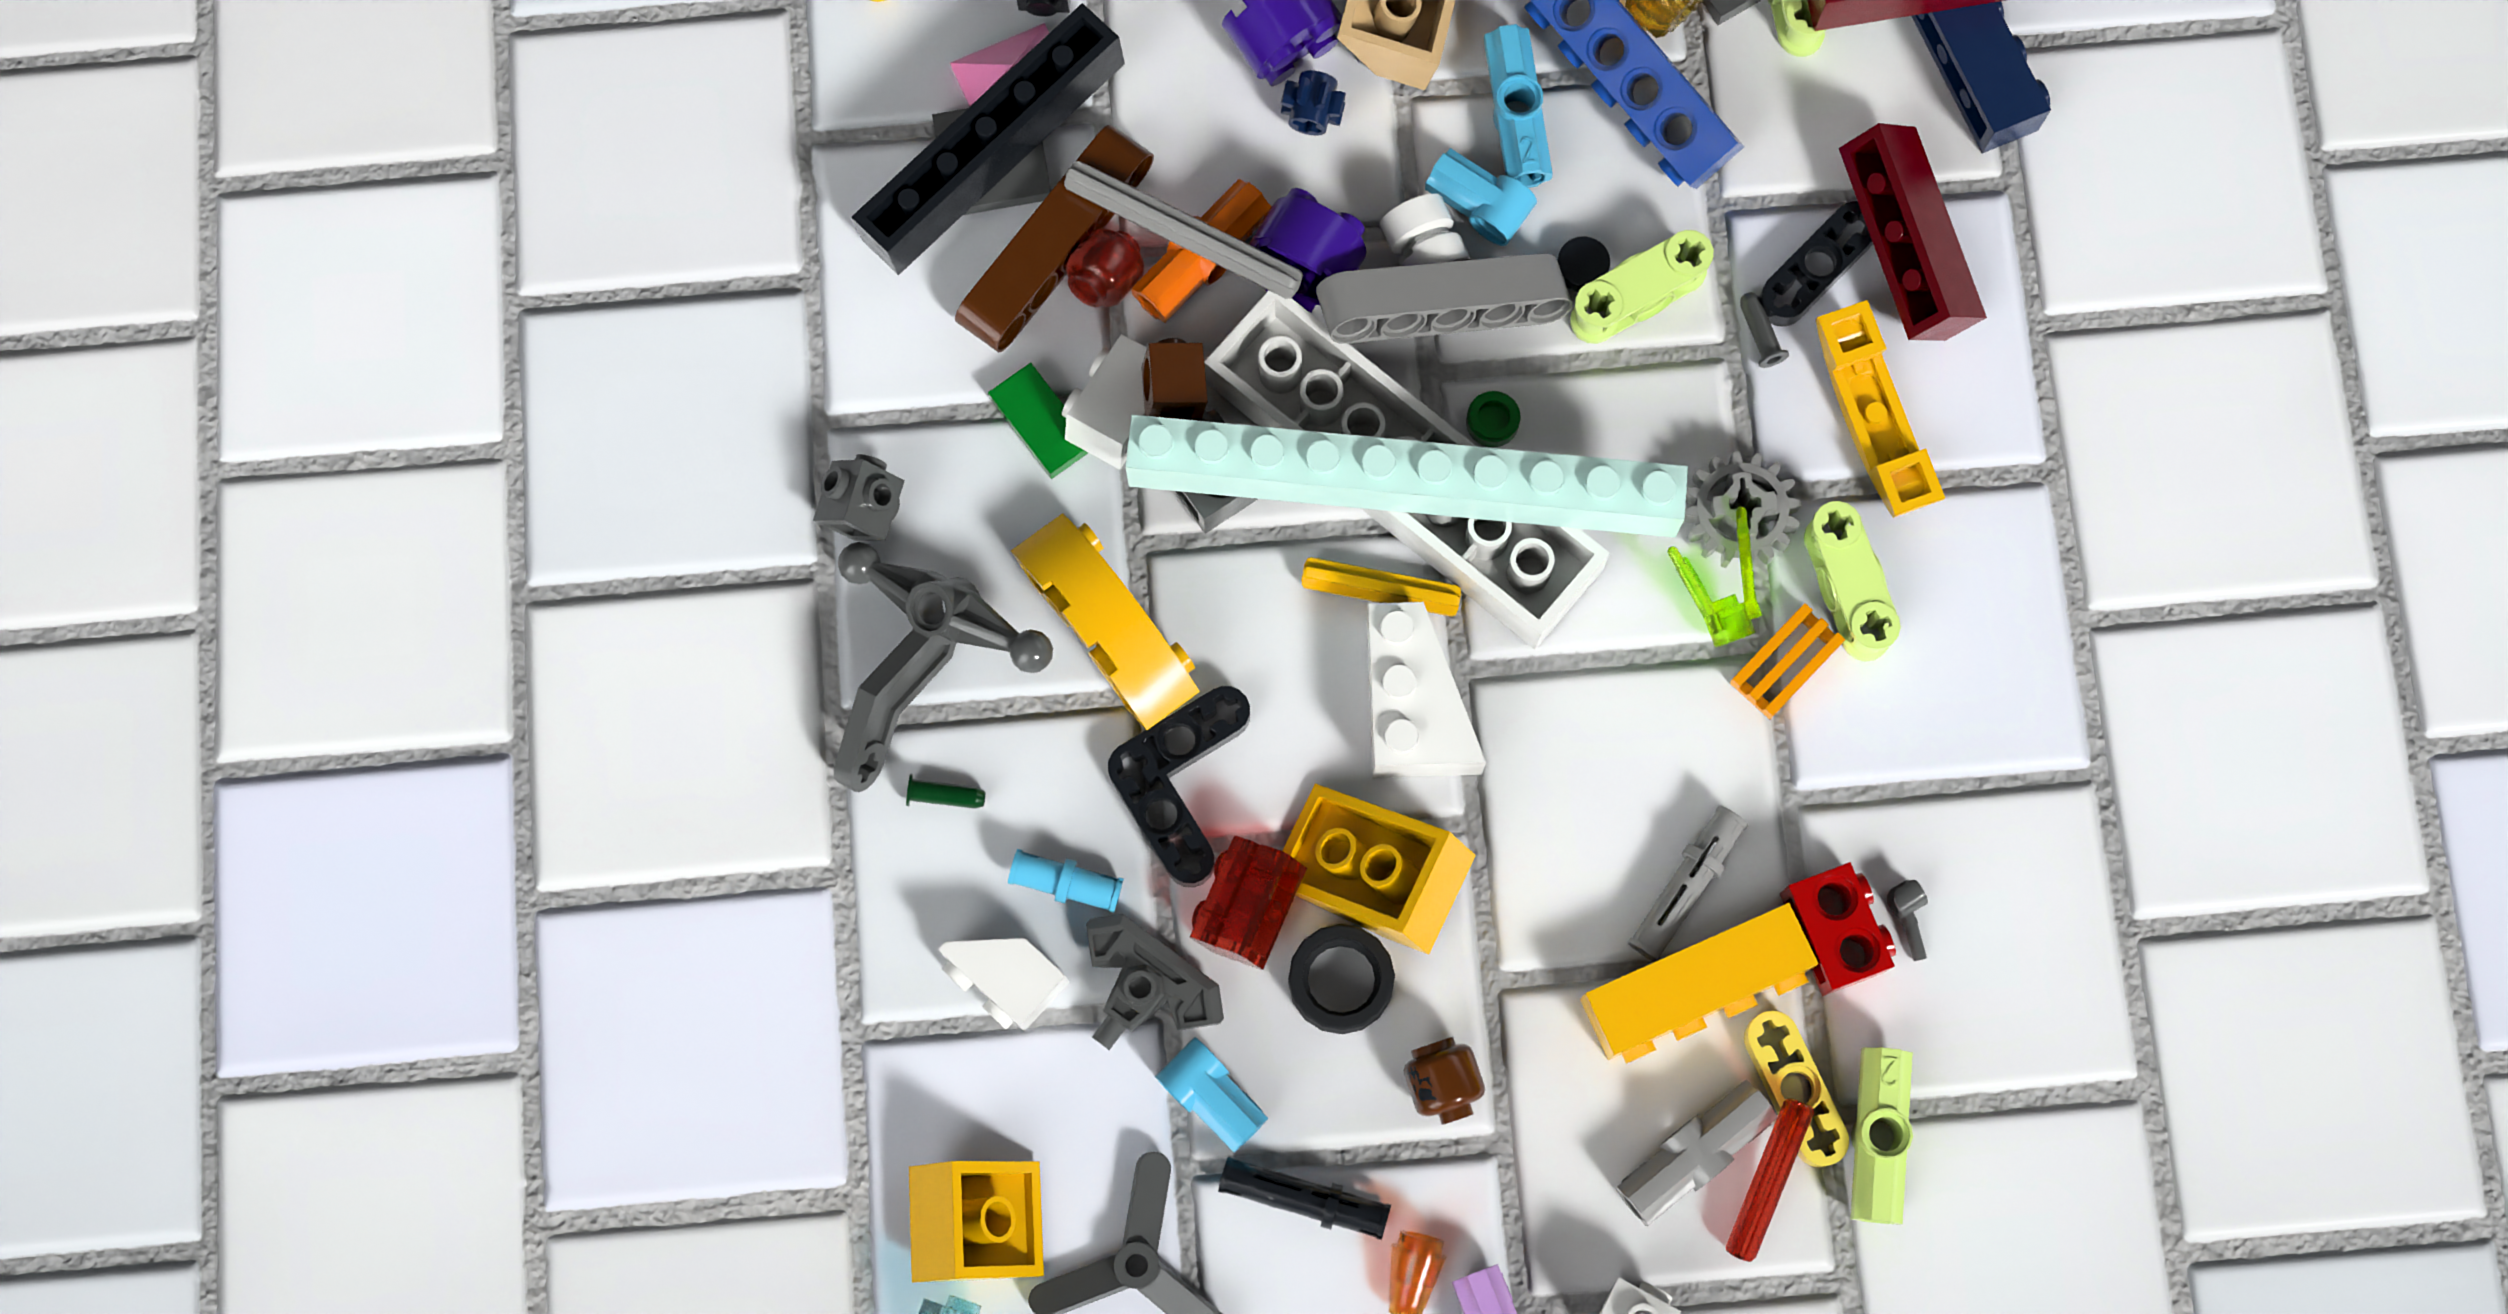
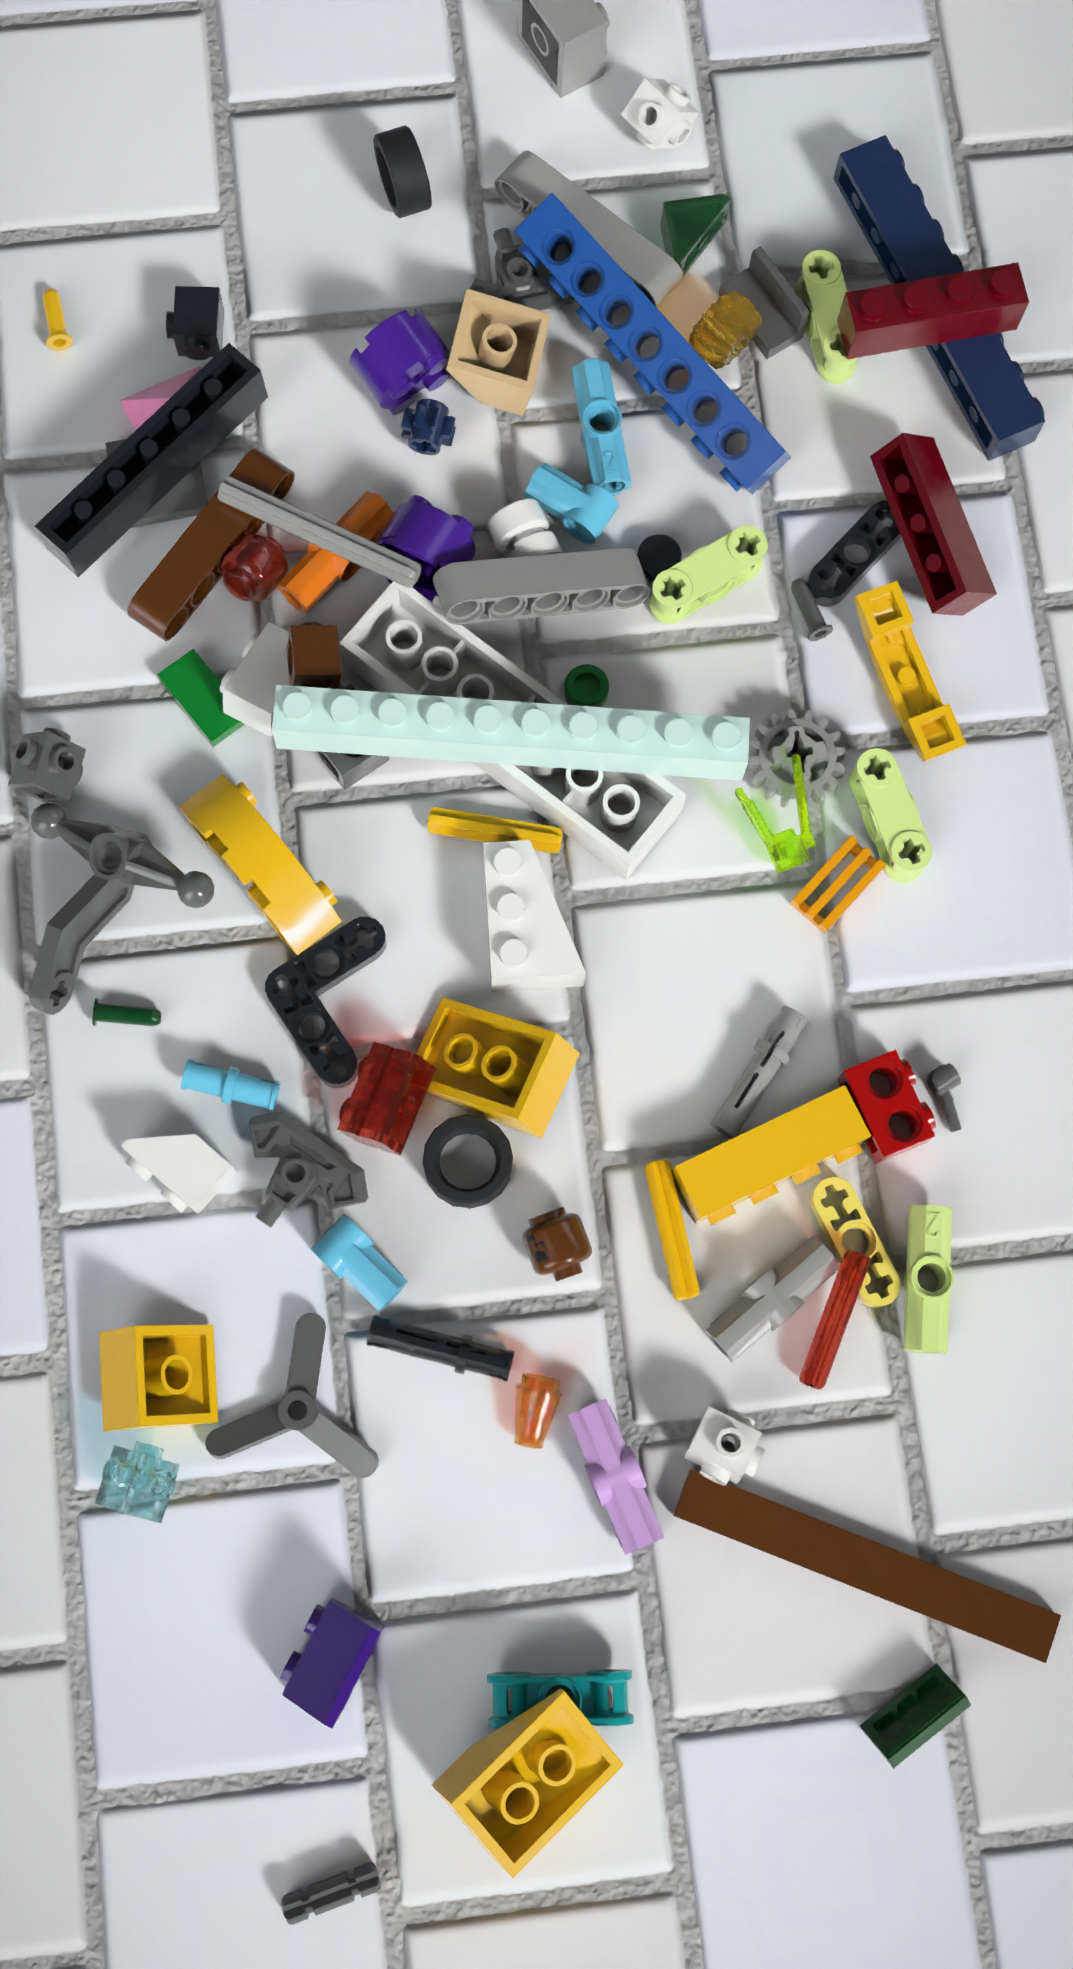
camera: 10 degrees left, 0 degrees up
(1579, 1067) = (672, 1230): none -> yellow axle

